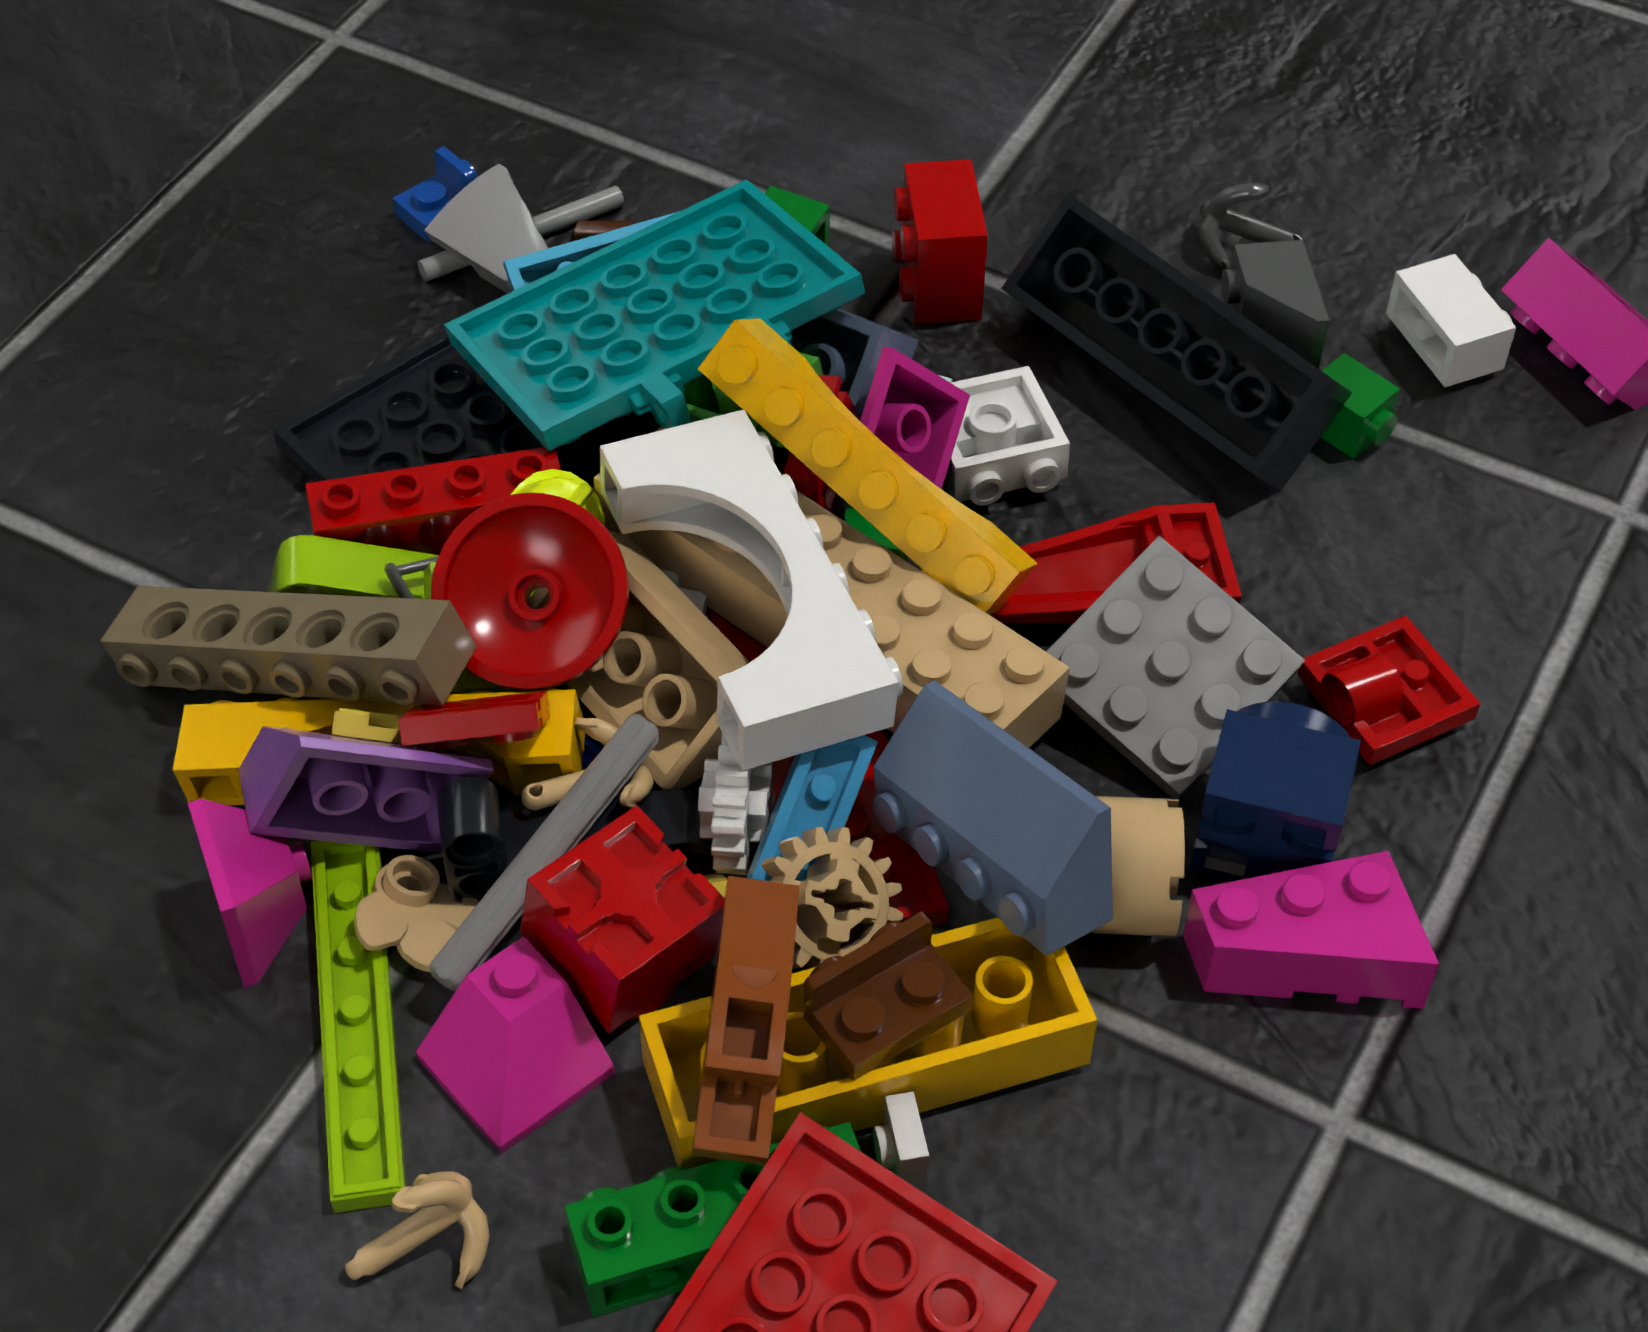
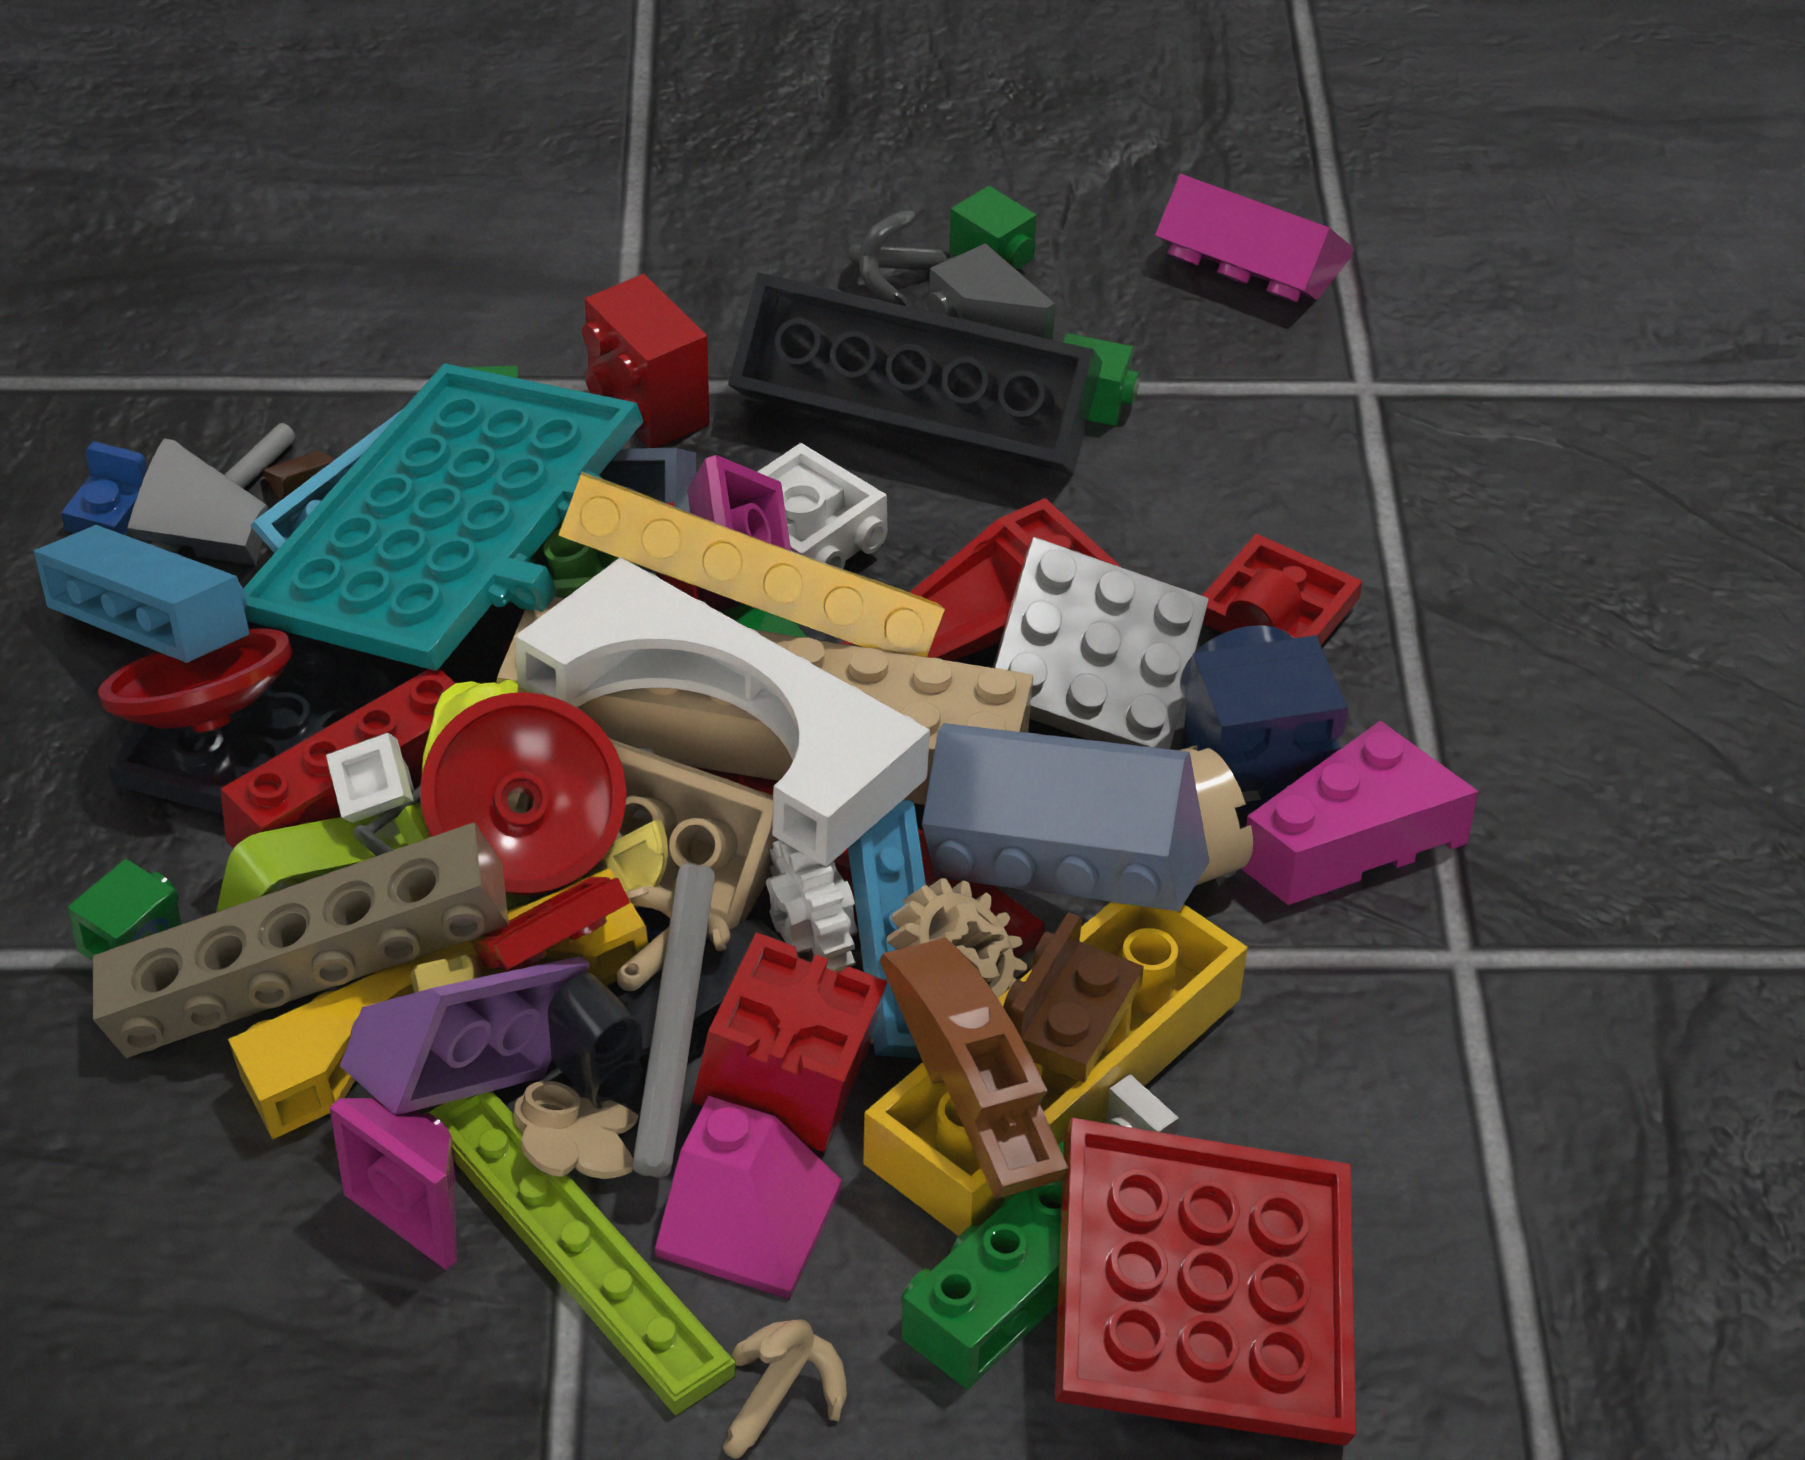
camera: 30 degrees left, 5 degrees down
(199, 556) = (123, 909): none -> green brick
(368, 382) = (200, 692): none -> red dish
(387, 291) = (143, 593): none -> dark azure brick
(419, 523) = (370, 778): none -> white tile
(611, 691) = (639, 857): none -> light yellow tile
(1349, 234) = (995, 221): none -> green brick
(1450, 320) = (1130, 275): white brick -> none

